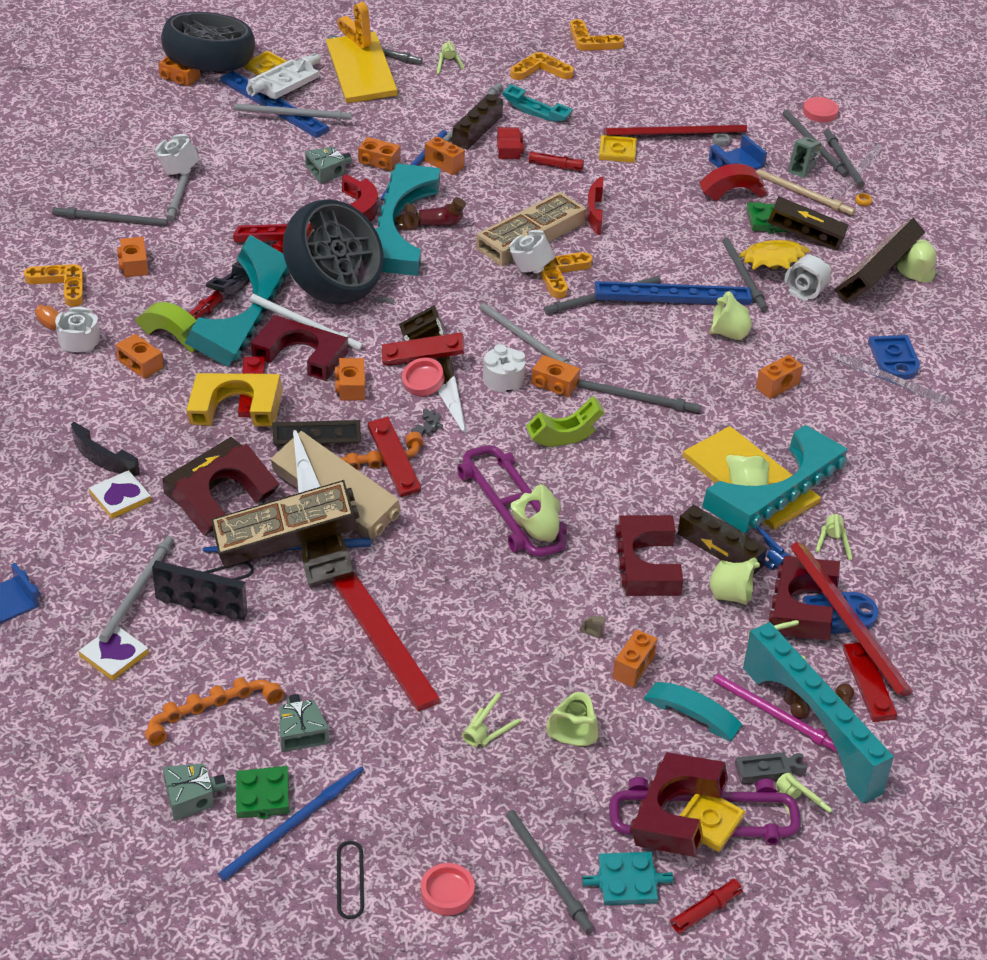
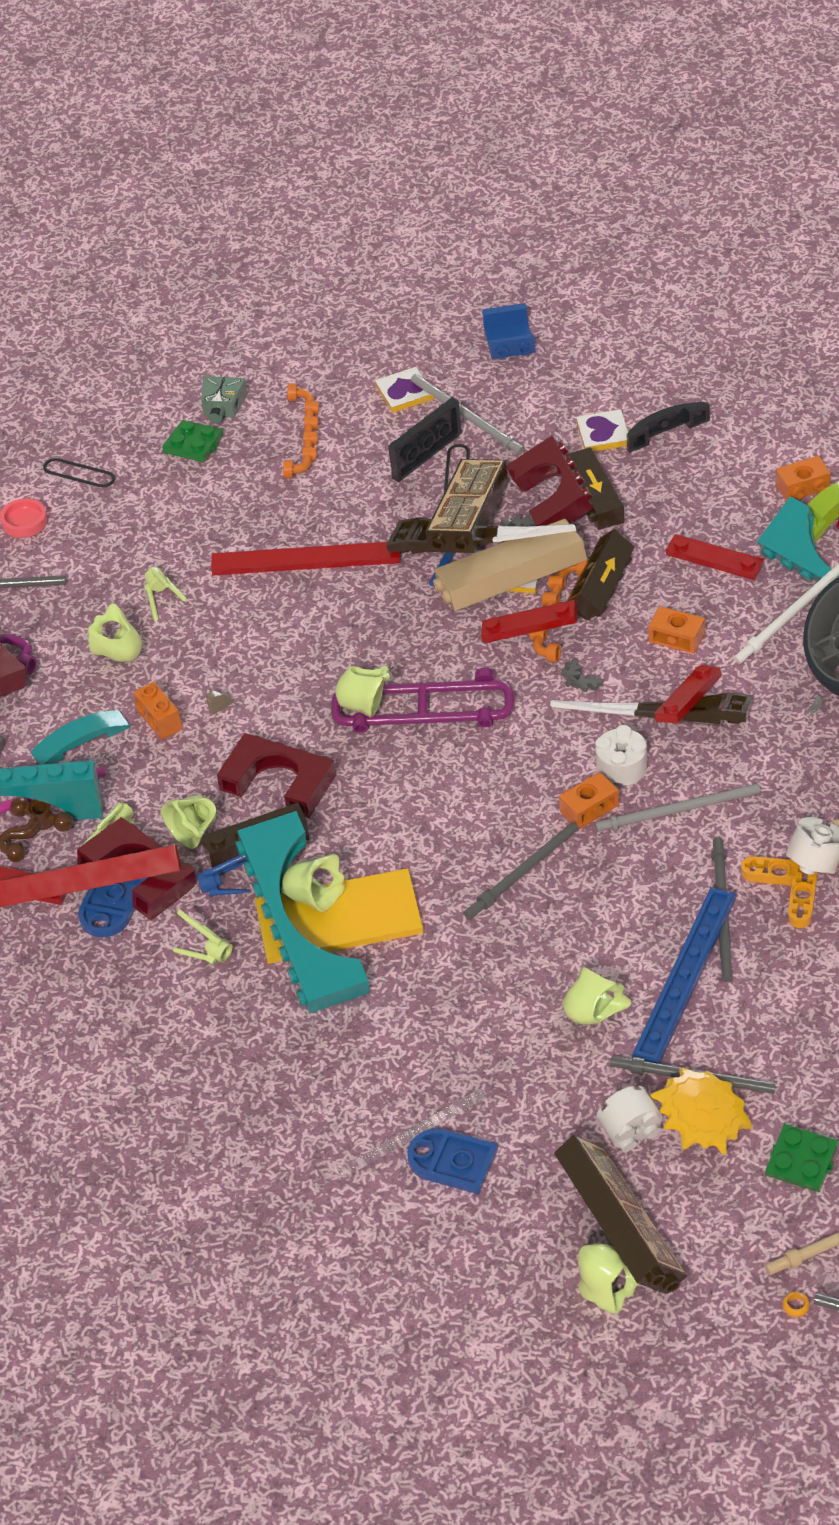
camera: 125 degrees right, 5 degrees up
(212, 388) = (681, 546): yellow arch -> none
(285, 332) = (739, 625): dark red arch -> none
(301, 724) = (241, 475): sand green torso -> none
(327, 794) = (164, 479): blue piece -> none
(423, 376) = (649, 689): coral piece -> none
(566, 430) = (498, 770): lime arch -> none
(779, 376) = (470, 1006): orange brick -> none
(808, 223) = (747, 1178): dark brown brick -> none

